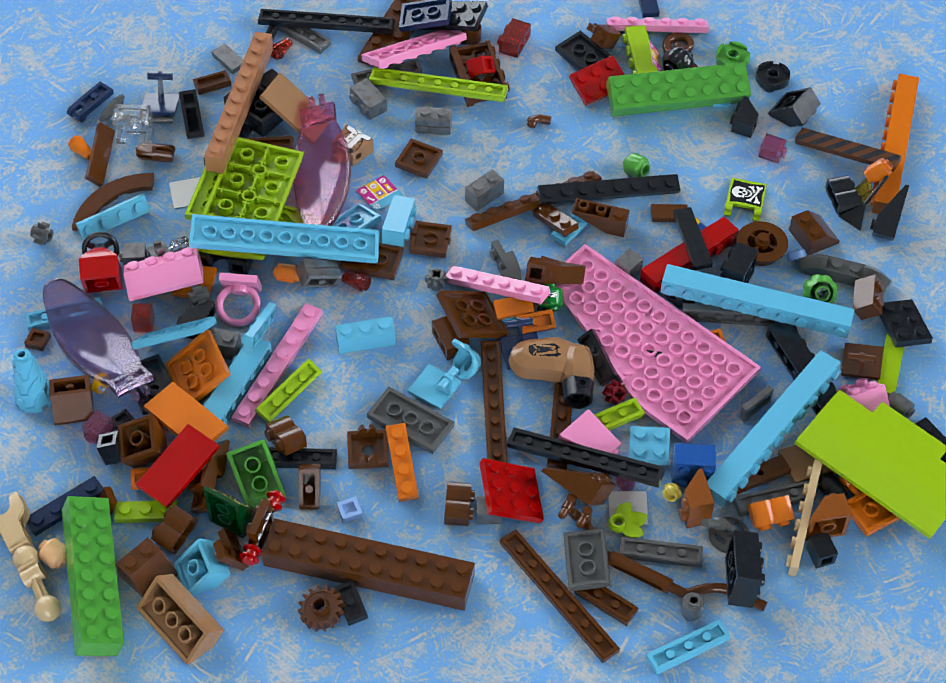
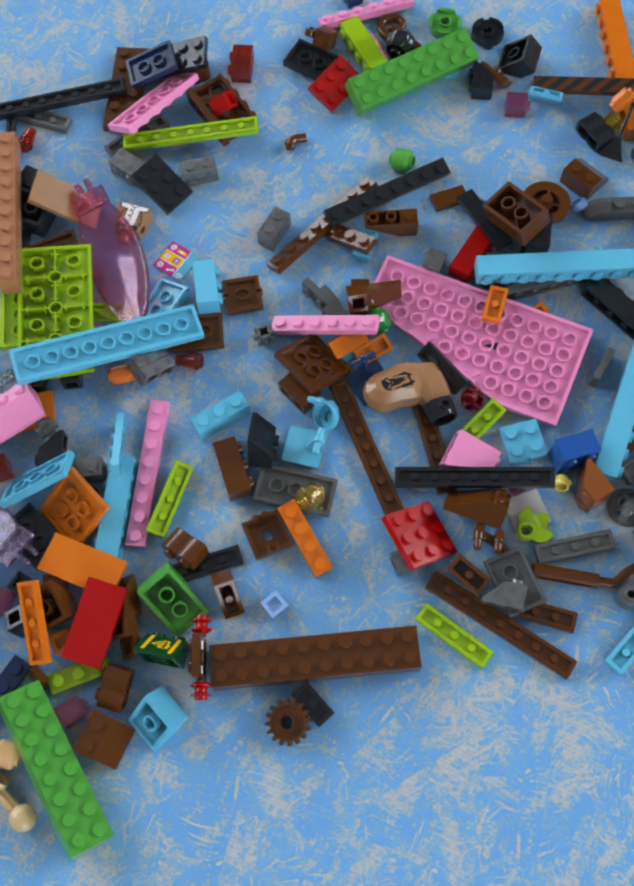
camera: 15 degrees left, 15 degrees up
(123, 447) = (34, 622): none -> orange plate
(127, 537) = (72, 711): none -> clear pink brick
(179, 618) = (156, 780): medium nougat slope -> none
(229, 549) = (179, 695): reddish brown plate -> none
(239, 285) = (81, 405): bright pink tile -> none
(359, 383) = (233, 468): none -> reddish brown brick
(392, 121) = (161, 184): none -> black plate
(393, 365) = (262, 442): none -> black slope
(419, 158) = (200, 214): reddish brown plate -> none
(420, 424) = (310, 496): none -> clear yellow head
(458, 504) = (374, 564): reddish brown brick -> none
(510, 590) = (454, 636): none -> lime tile
(544, 539) = (469, 574): none -> reddish brown brick
(572, 564) = (507, 596): none -> flat silver slope
(670, 315) = (495, 304): none -> orange plate
(720, 237) = (516, 213): none -> reddish brown brick
(745, 195) = (510, 158): flag -> none
(764, 115) = (497, 74): none -> reddish brown plate
(806, 147) = (545, 95): none -> medium azure slope
(825, 283) = (616, 235): bright green plant -> none

